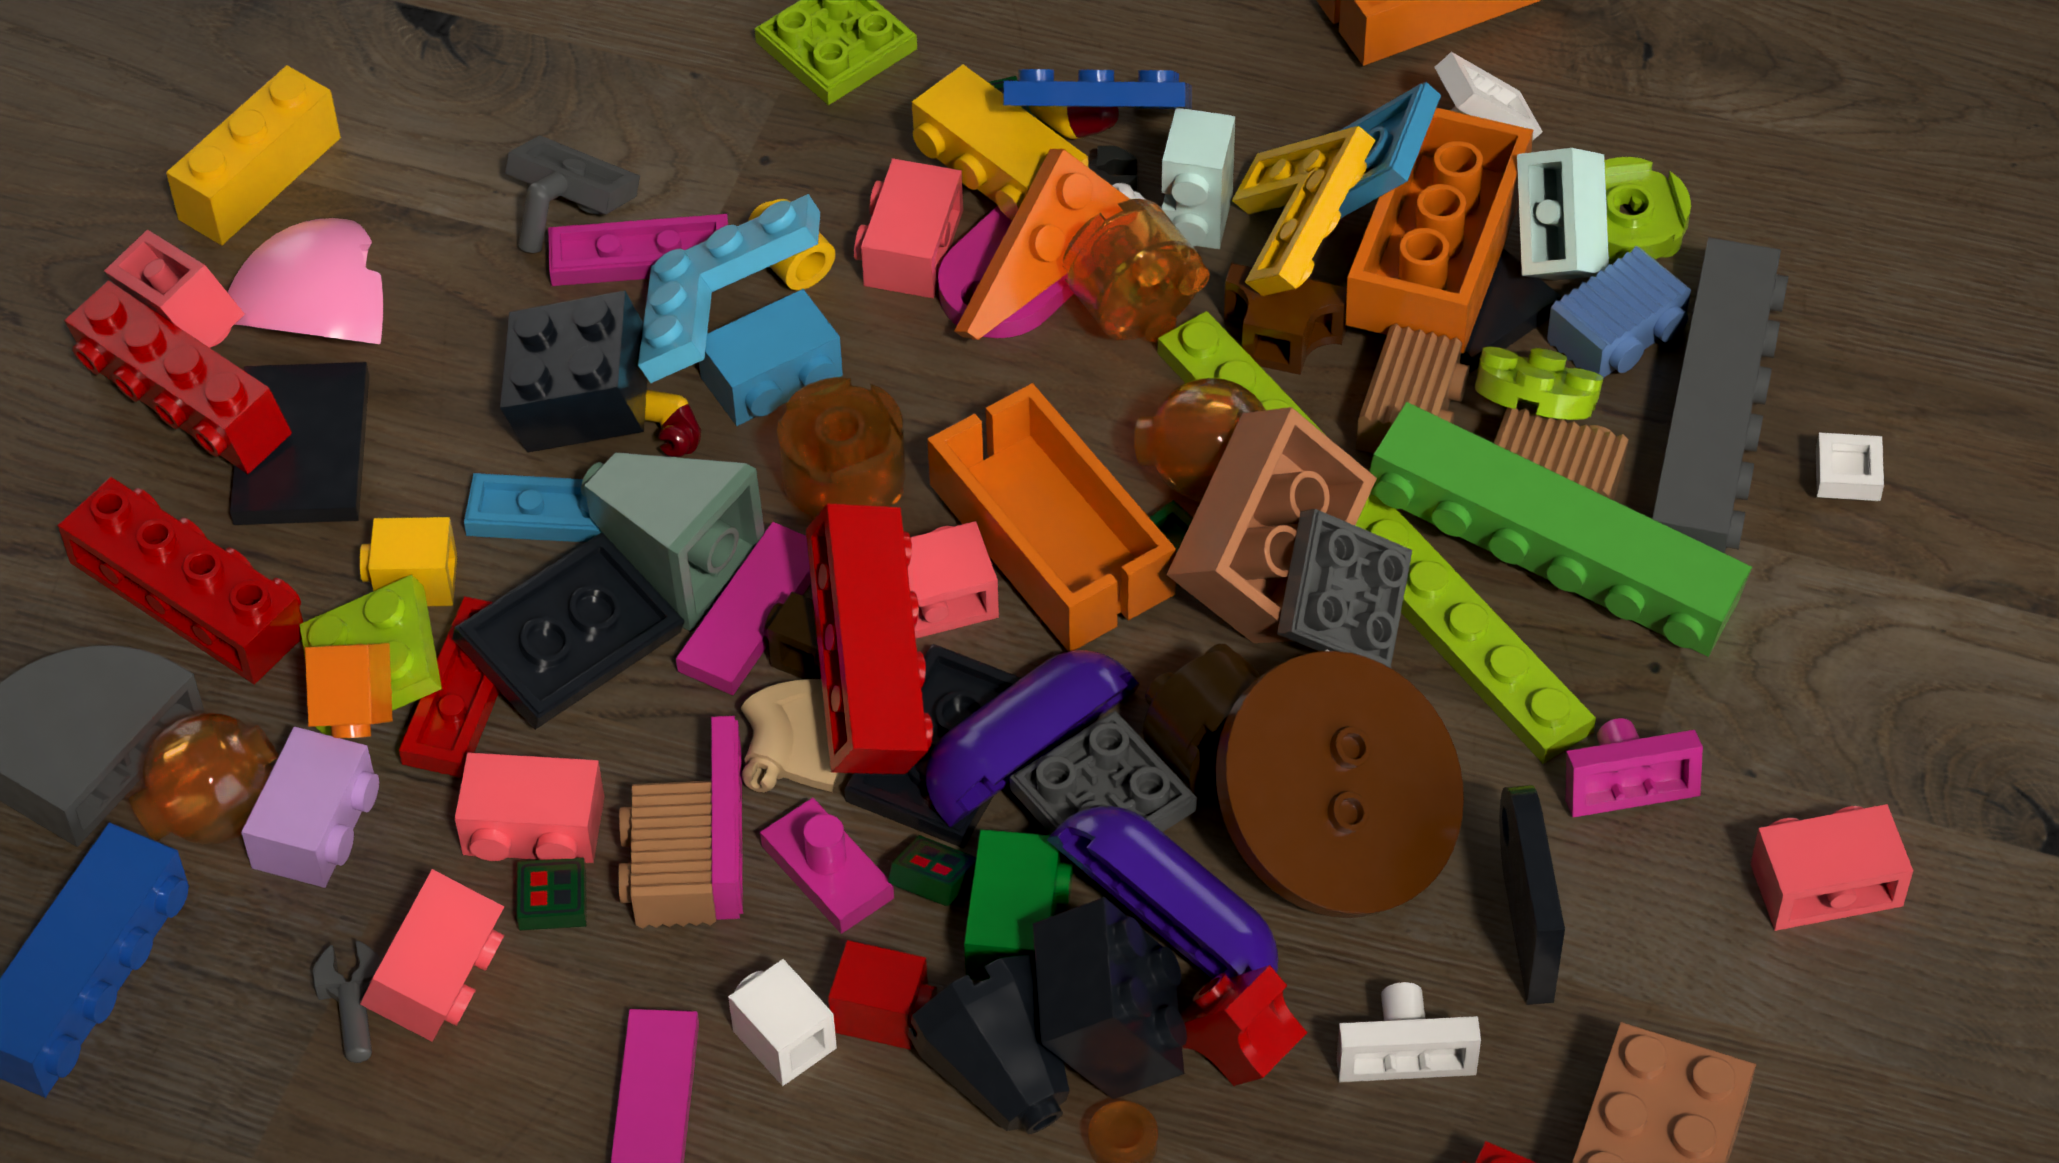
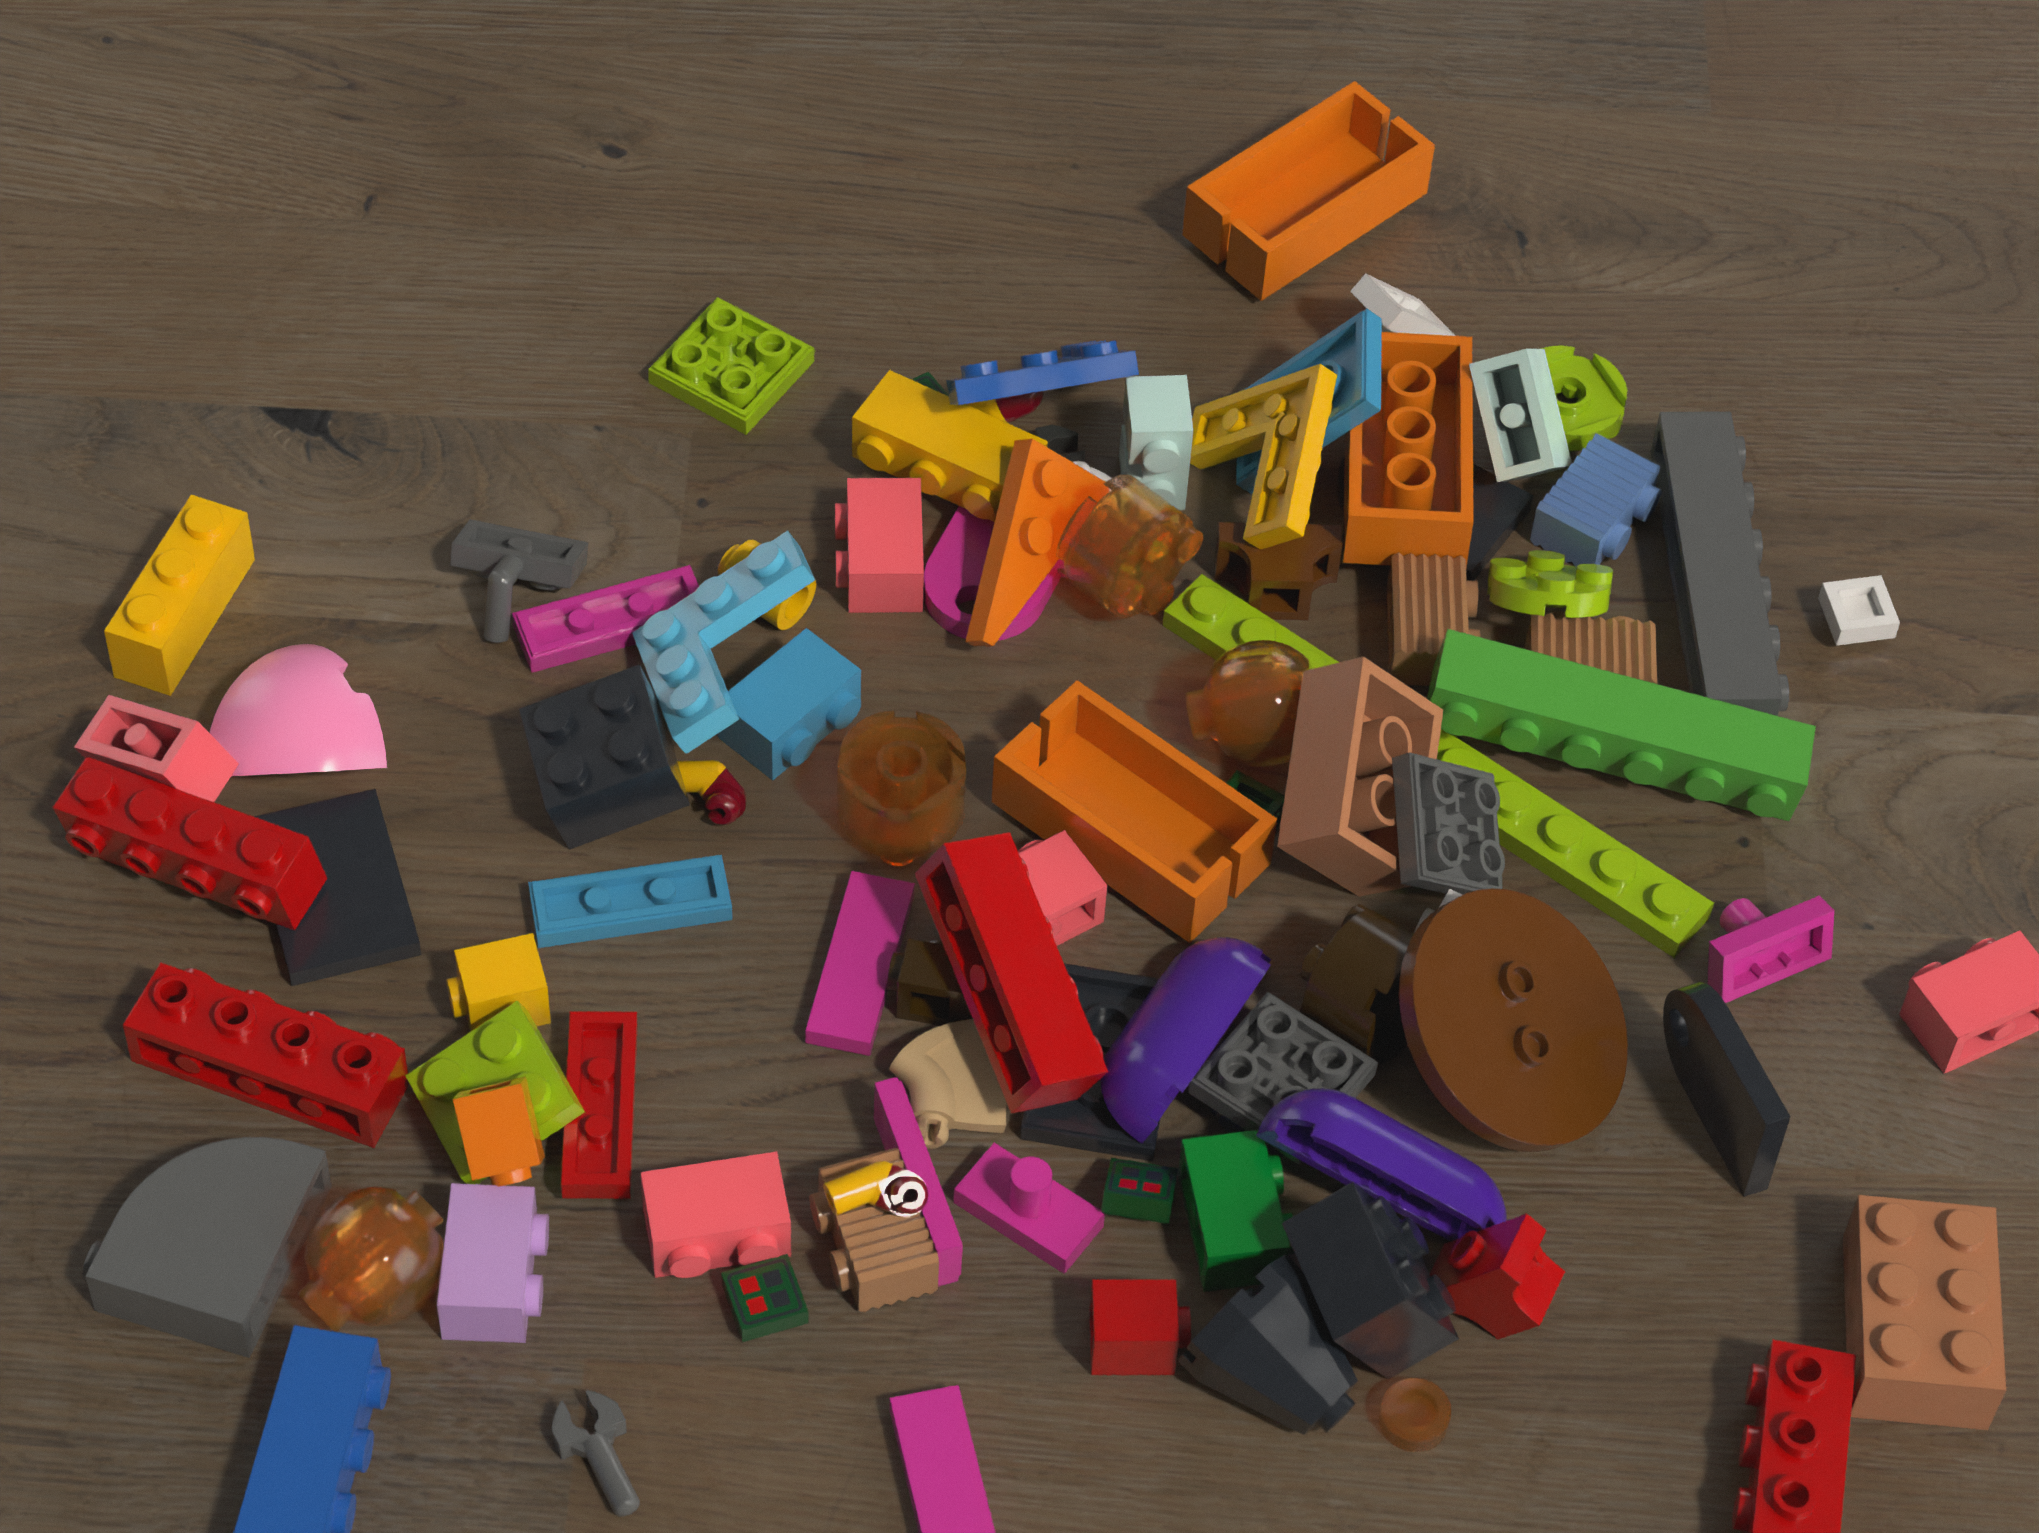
camera: 20 degrees left, 0 degrees up
(433, 955) = (677, 1389): coral brick -> none
(568, 630) = (688, 1024): black tile -> none
(676, 810) = (878, 1185): none -> arm
(678, 522) = (763, 892): sand green slope -> none
(782, 1021) = (1047, 1375): white brick -> none
(1407, 1042) = (1655, 1261): white tile -> none

